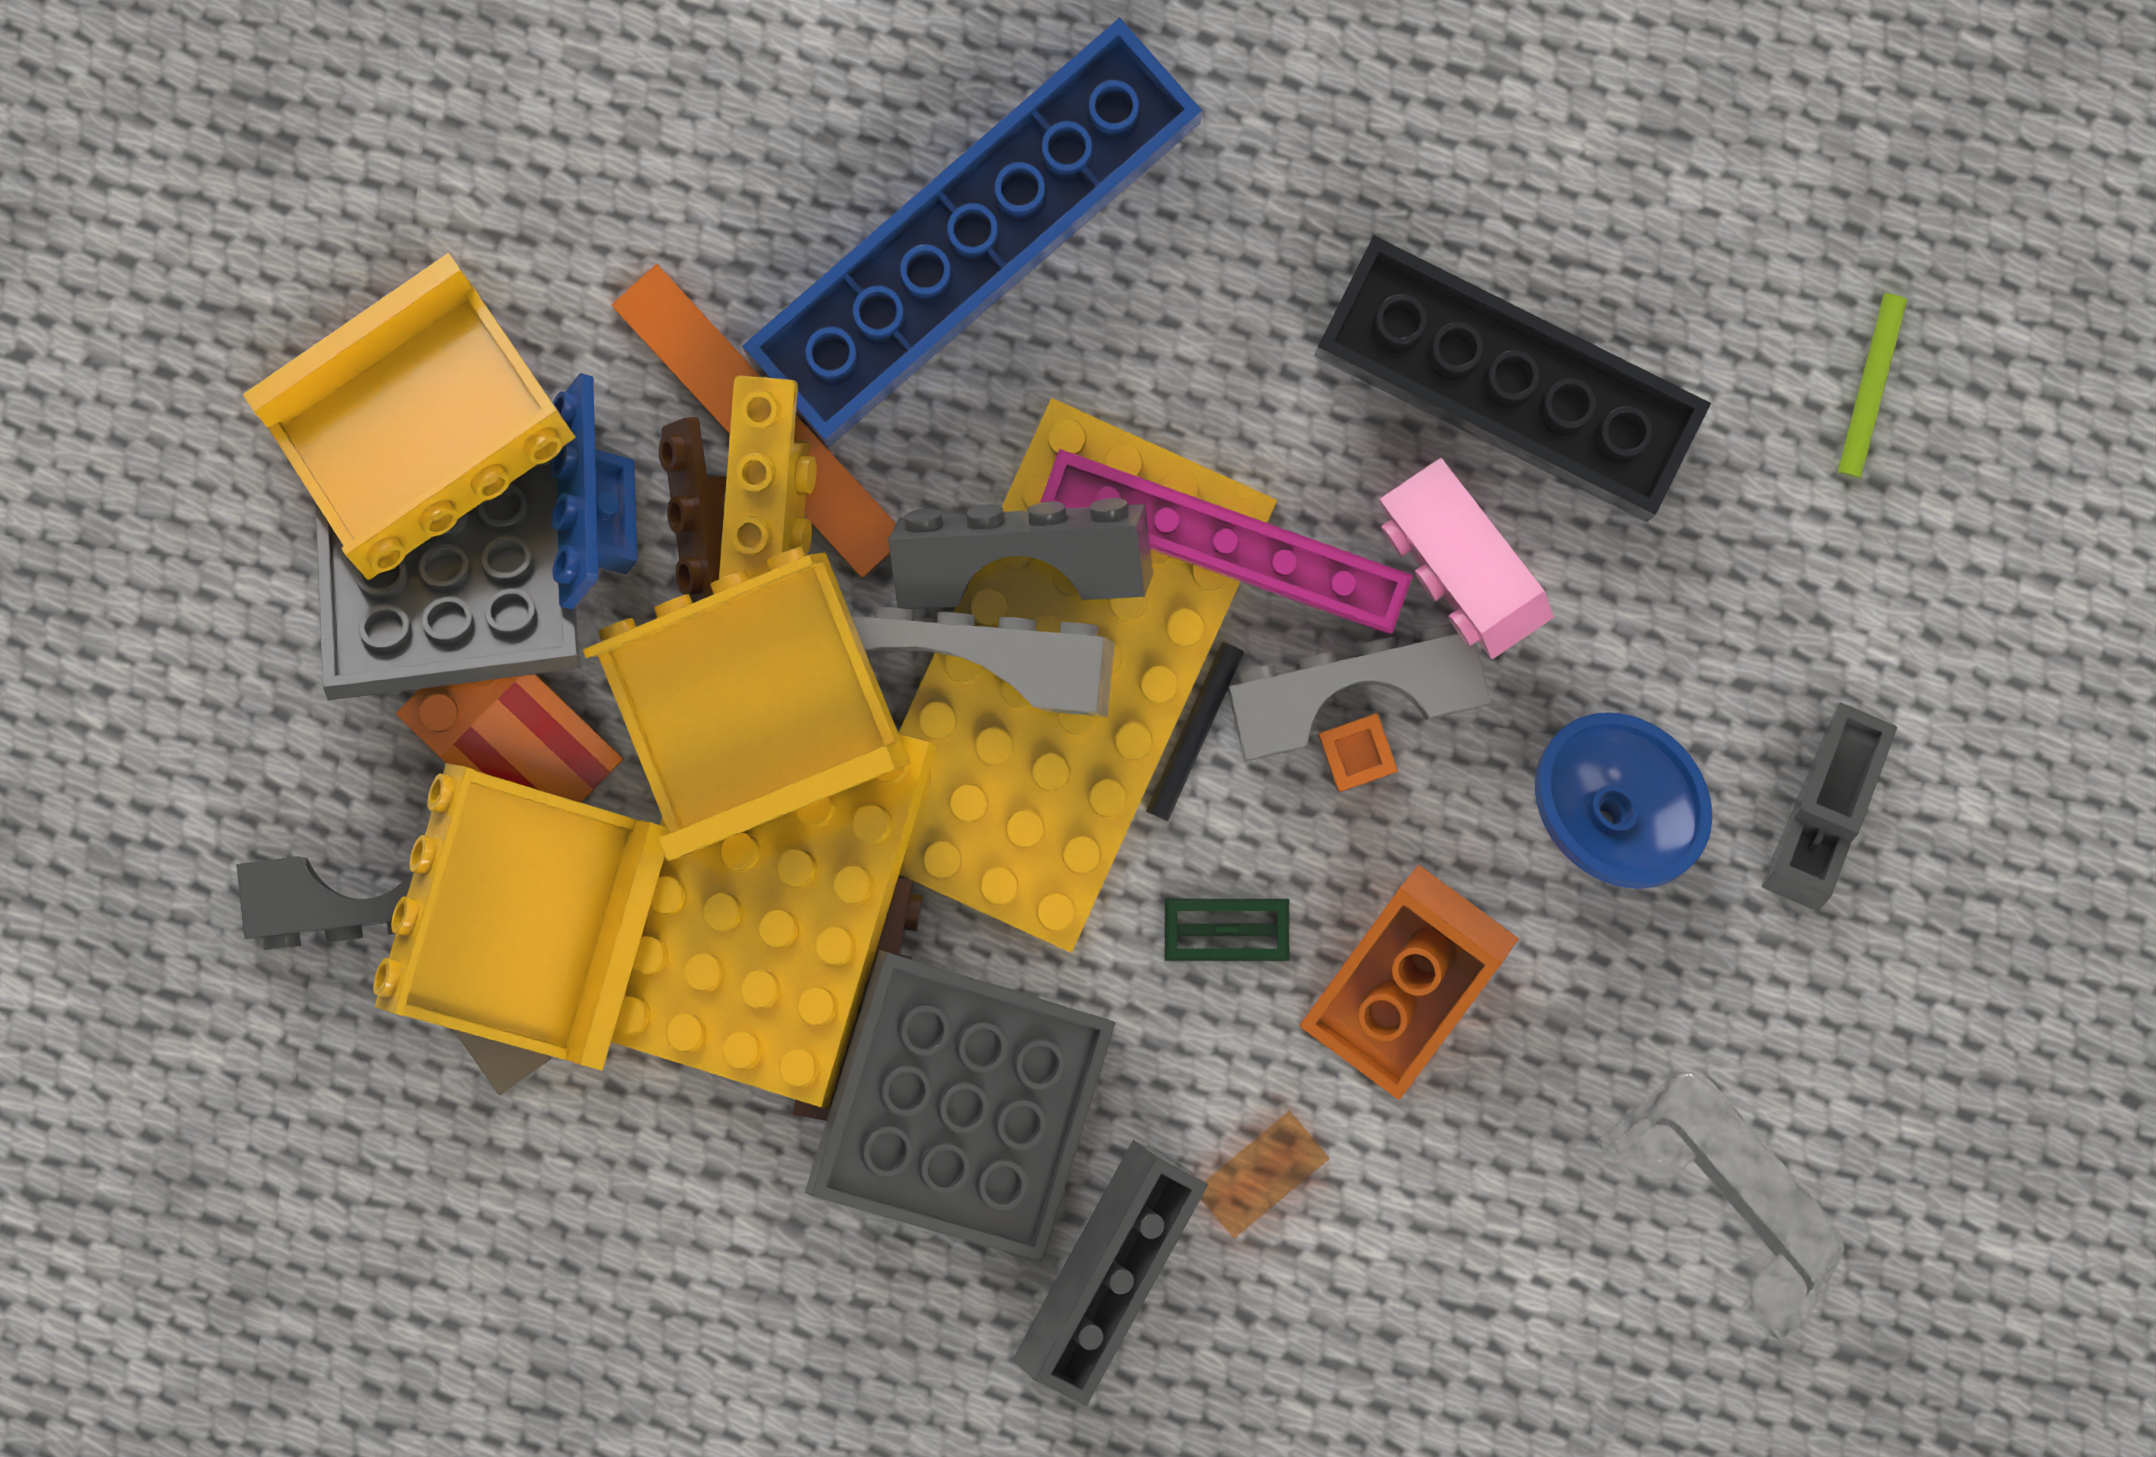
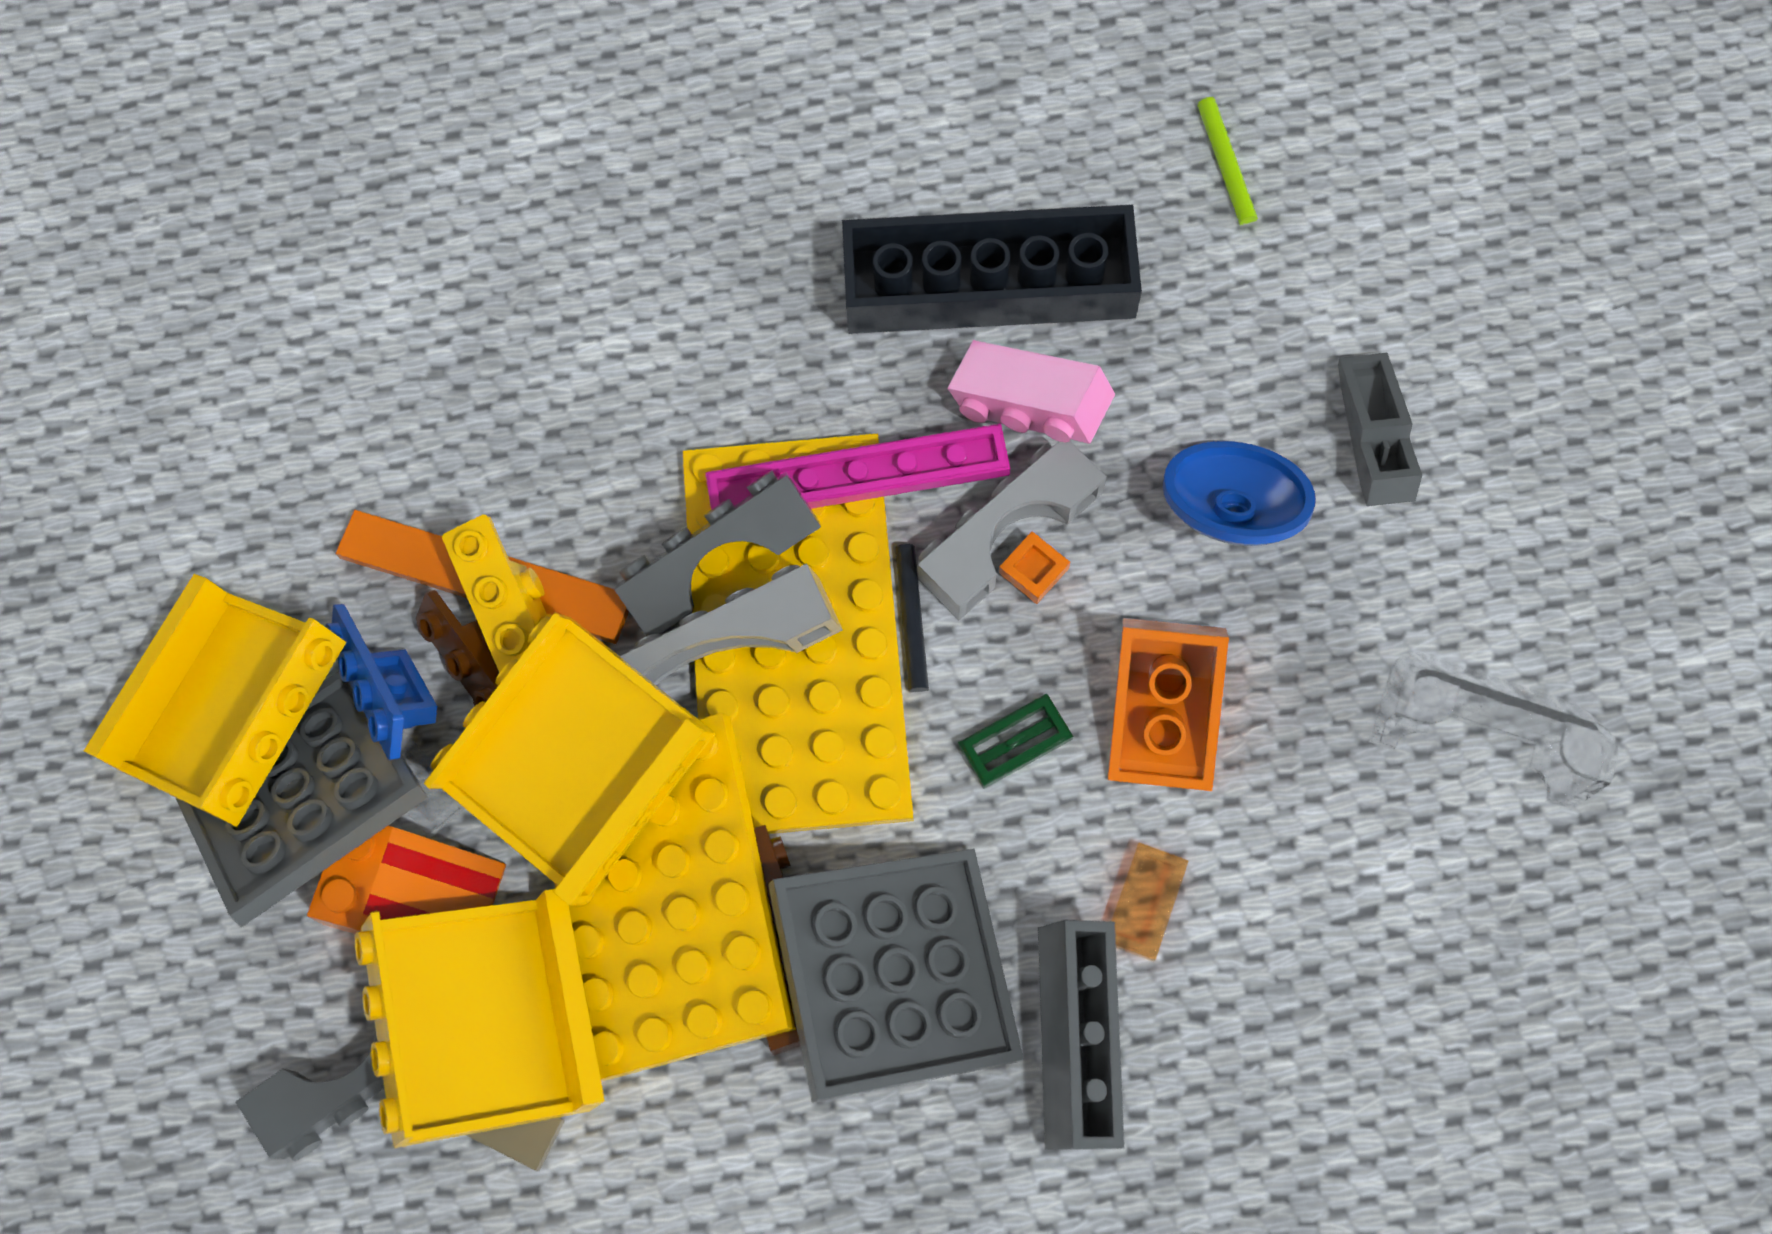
camera: 25 degrees left, 15 degrees down
(975, 231) = (567, 369): blue brick -> none

